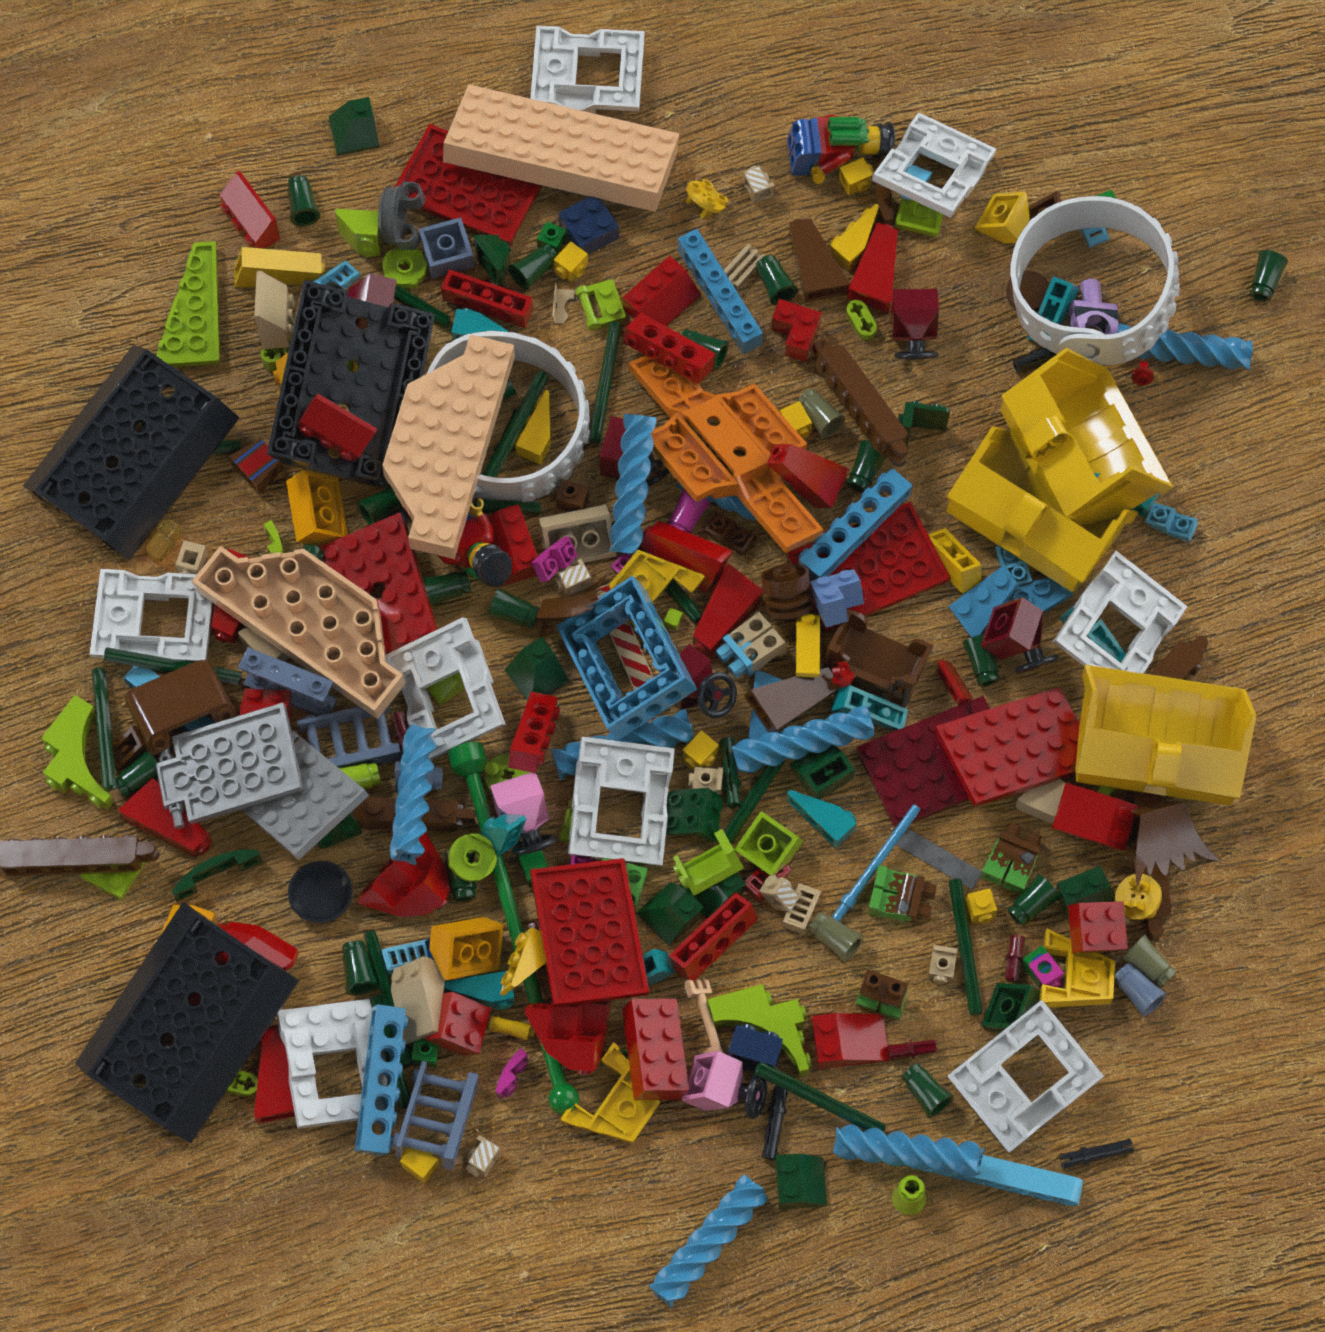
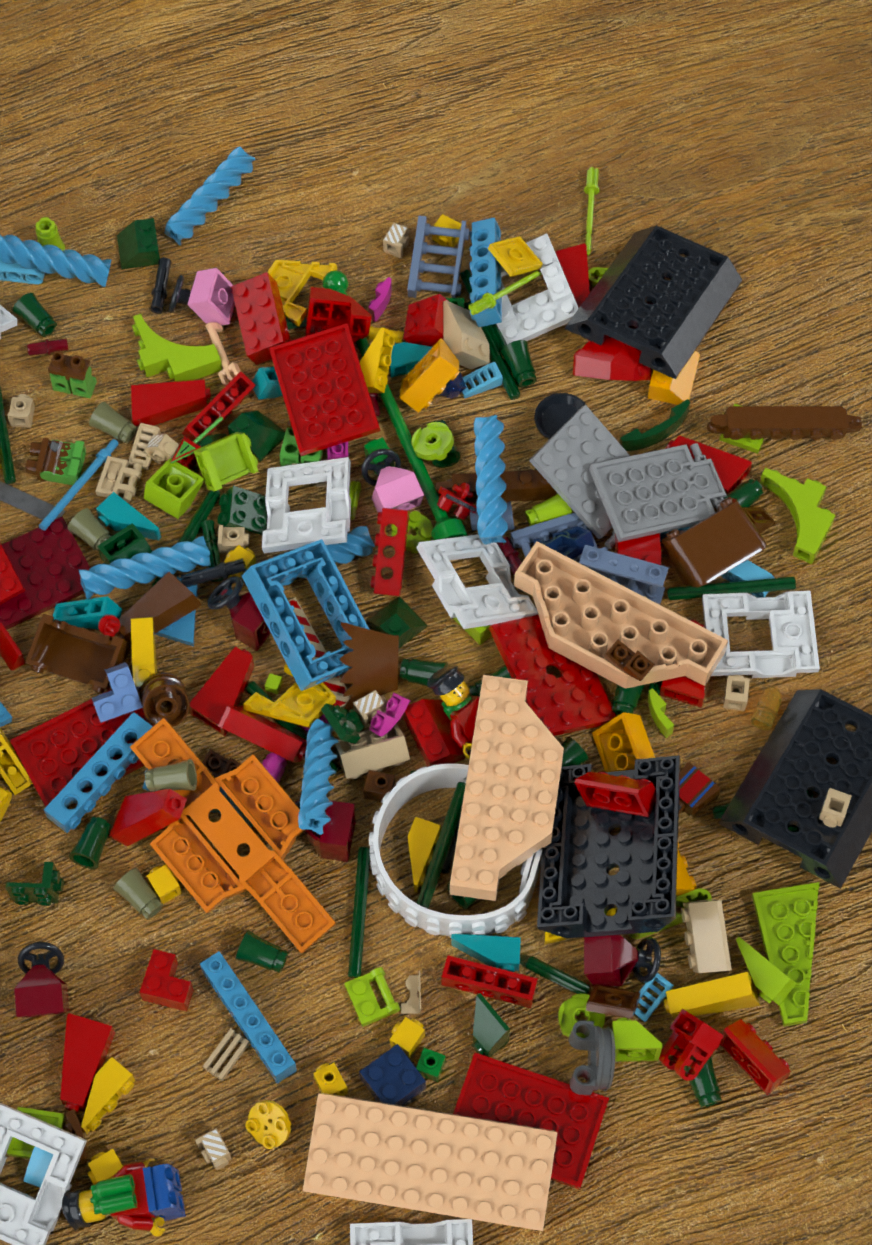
camera: 175 degrees right, 5 degrees down
(103, 729) = (781, 530): dark green axle -> none
(118, 392) = (834, 808): none -> tan brick
(223, 278) = (765, 975): none -> lime slope
(232, 1212) = (591, 189): none -> lime piece
(298, 224) = (695, 1040): none -> red brick
(299, 560) = (627, 661): none -> reddish brown slope
(343, 730) = (569, 542): none -> dark blue slope
(343, 1087) = (515, 256): none -> yellow plate
(354, 127) = (662, 1178): dark green slope -> none
(371, 258) = (613, 1001): none -> reddish brown plate
(385, 1010) = (489, 300): none -> lime piece
(409, 888) = (462, 428): red brick -> none
(446, 248) = (540, 1035): sand blue brick -> none
(454, 787) = (448, 498): none -> red hips
(503, 831) = (405, 452): teal slope -> none
(533, 266) = (446, 1027): dark green plant -> none
(607, 554) = (344, 722): none -> dark green plate
(646, 229) = (330, 1080): none -> yellow brick
(662, 293) = (310, 1007): red slope -> none
(669, 348) = (261, 927): red brick -> none
(720, 731) = (222, 570): none -> black pin
(751, 646) = (196, 658): tan hips -> none
(751, 883) = (187, 446): none -> bright green piece
(755, 1047) = (179, 323): dark blue brick -> none
(774, 960) = (167, 400): none -> red slope
(775, 280) = (190, 1035): dark green plant -> none
(780, 485) = (174, 777): none -> olive plant
(815, 264) = (148, 1057): reddish brown slope -> none
(817, 1097) = (123, 293): dark green axle -> none
(838, 871) = (113, 475): none -> tan plate
(849, 1040) = (104, 345): red slope -> none
(857, 322) = (95, 1007): lime beam -> none
(862, 401) = (96, 899): reddish brown hinge -> none
(862, 803) = (88, 528): none -> olive plant

